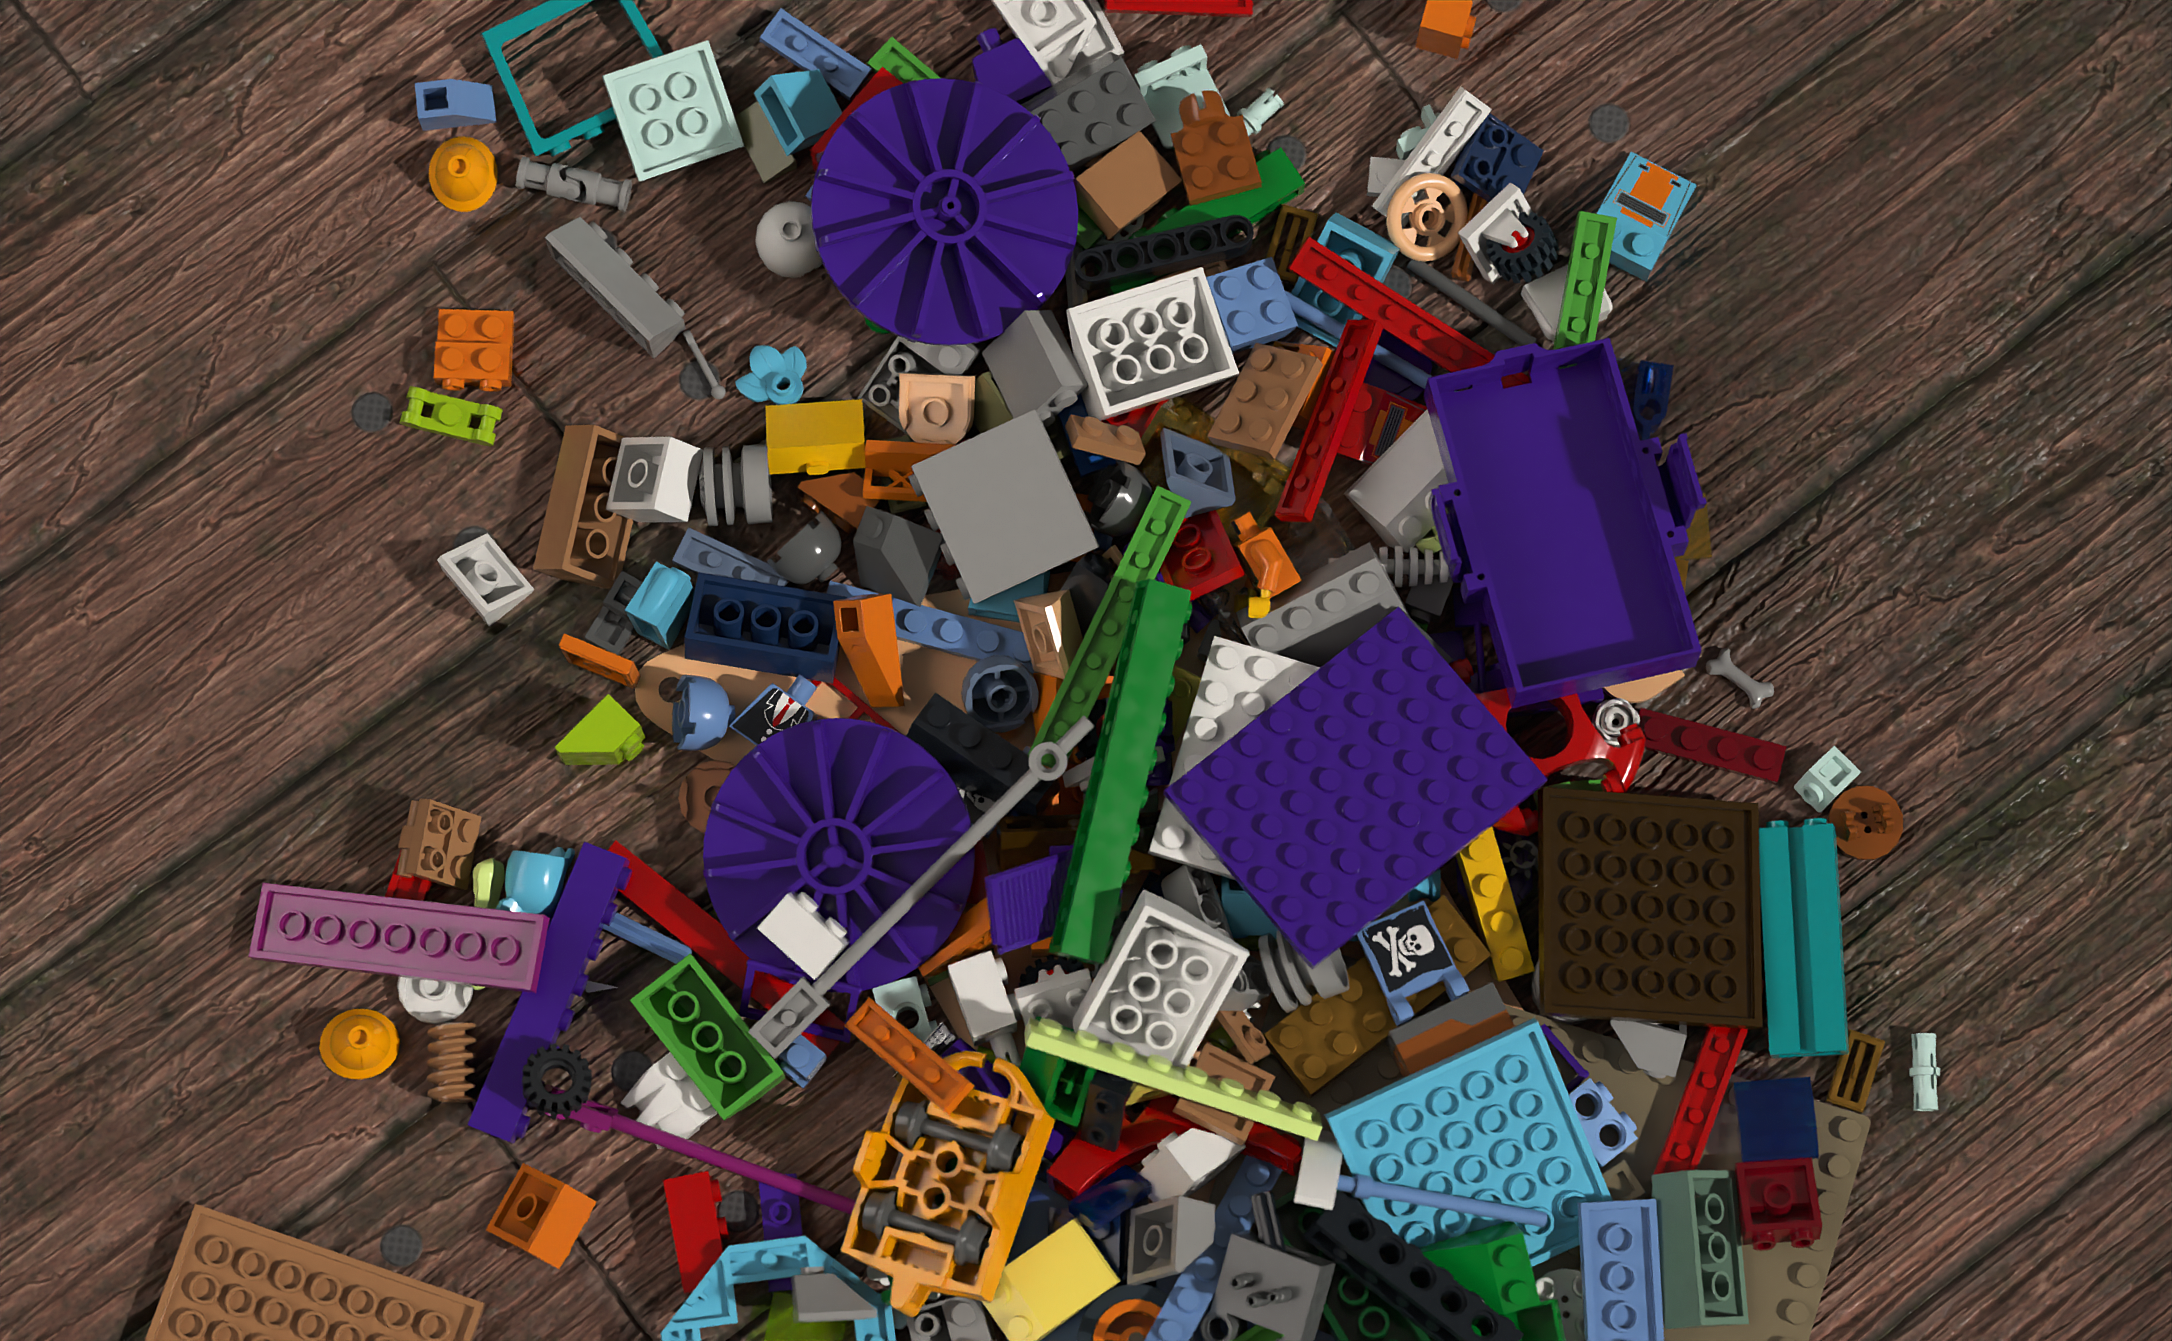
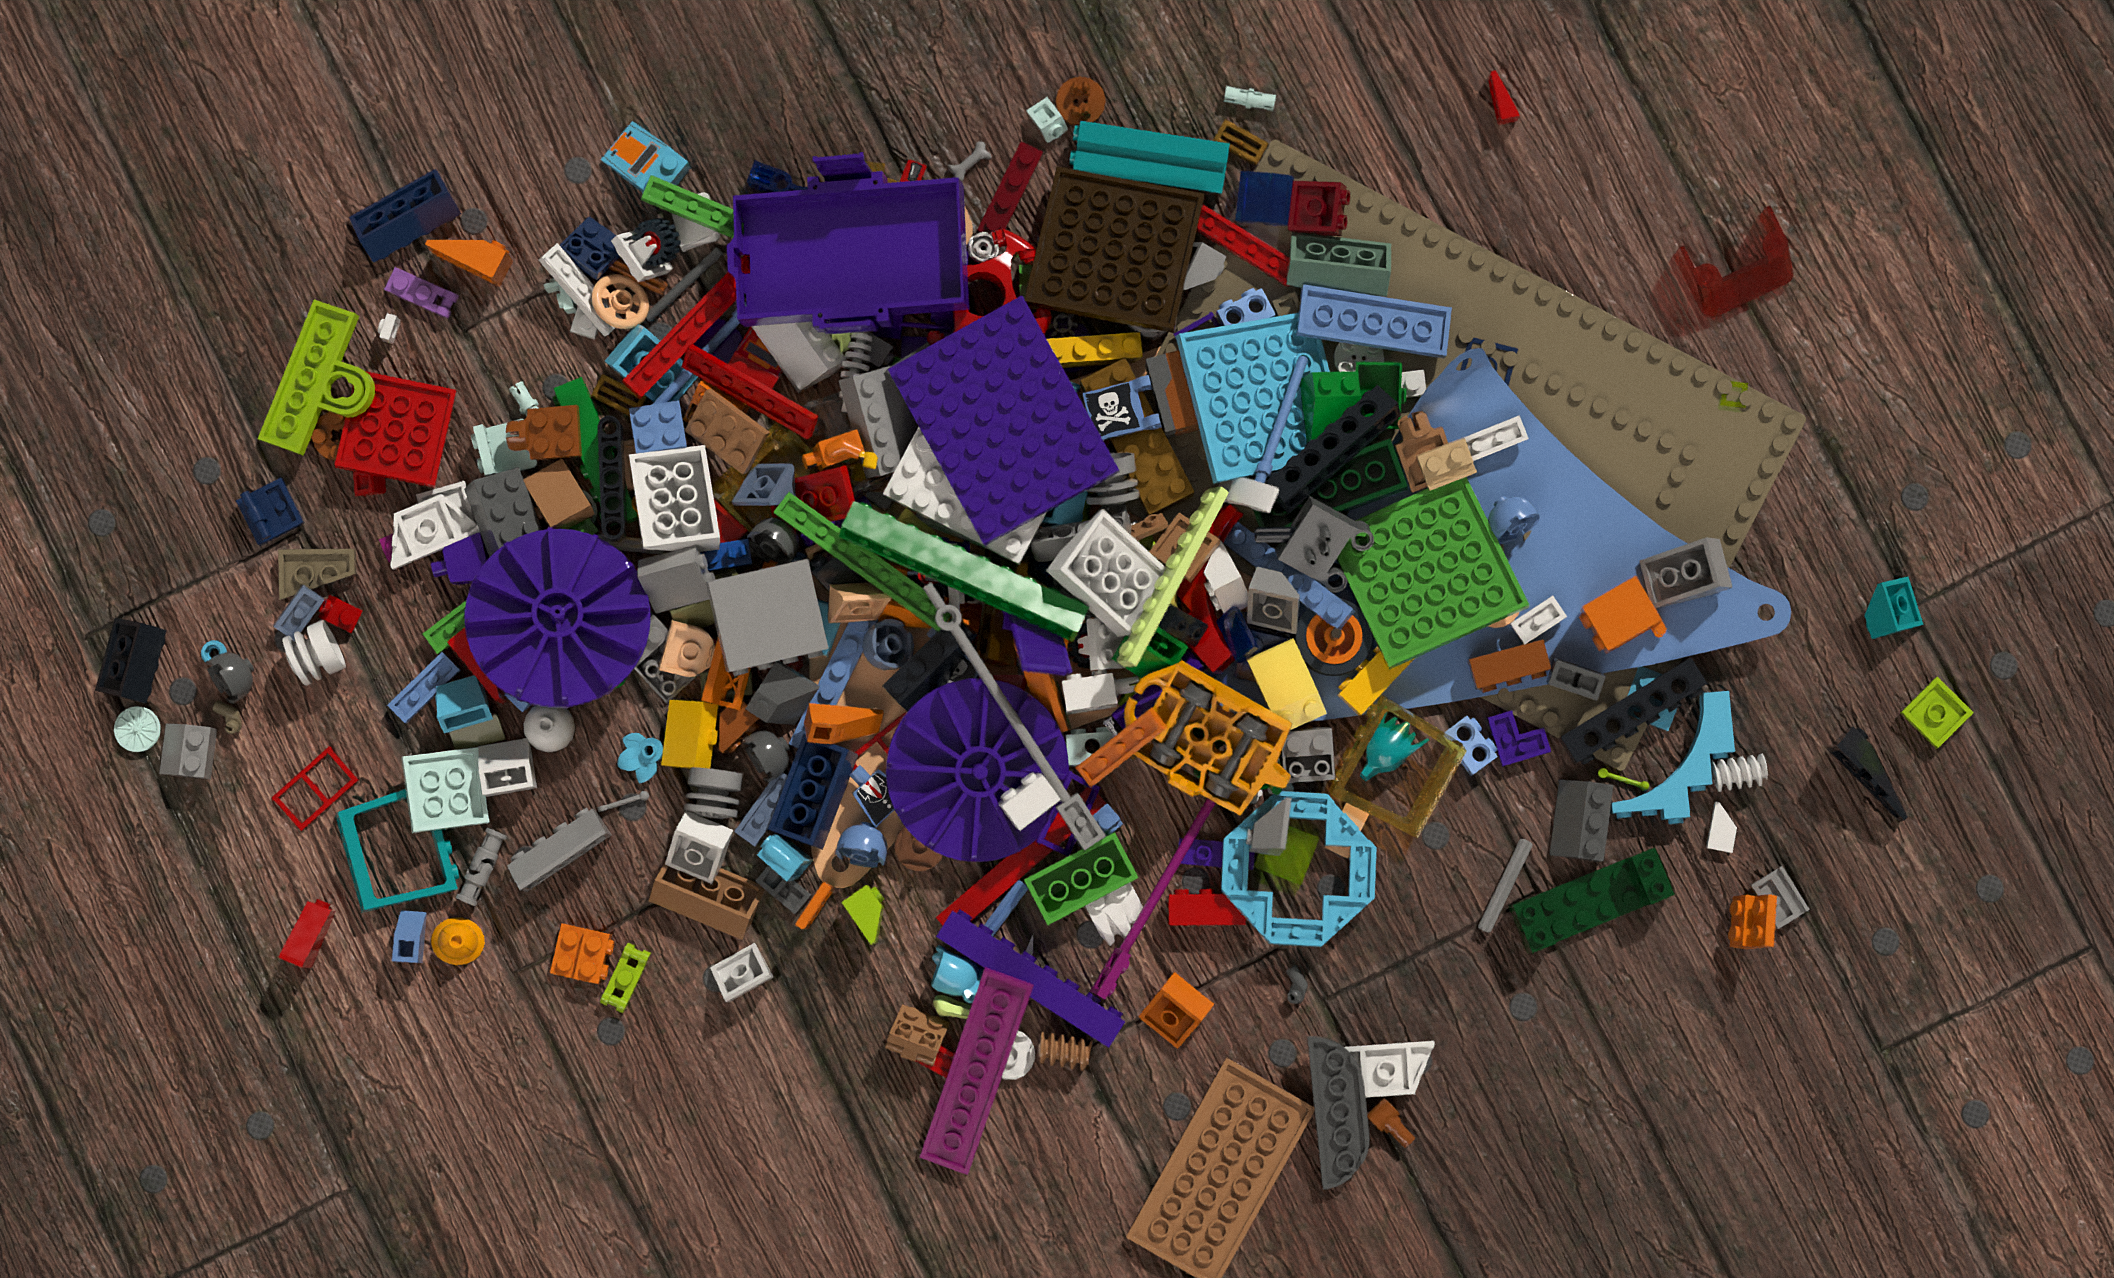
camera: 75 degrees left, 5 degrees up
(359, 1044) = (1038, 1111): light orange hat -> none
(556, 1103) = (1077, 982): black tyre -> none
(721, 189) = (506, 767): none -> white slope
(1105, 439) = (734, 541): medium nougat plate -> none
(1706, 600) = (913, 171): none -> sticker

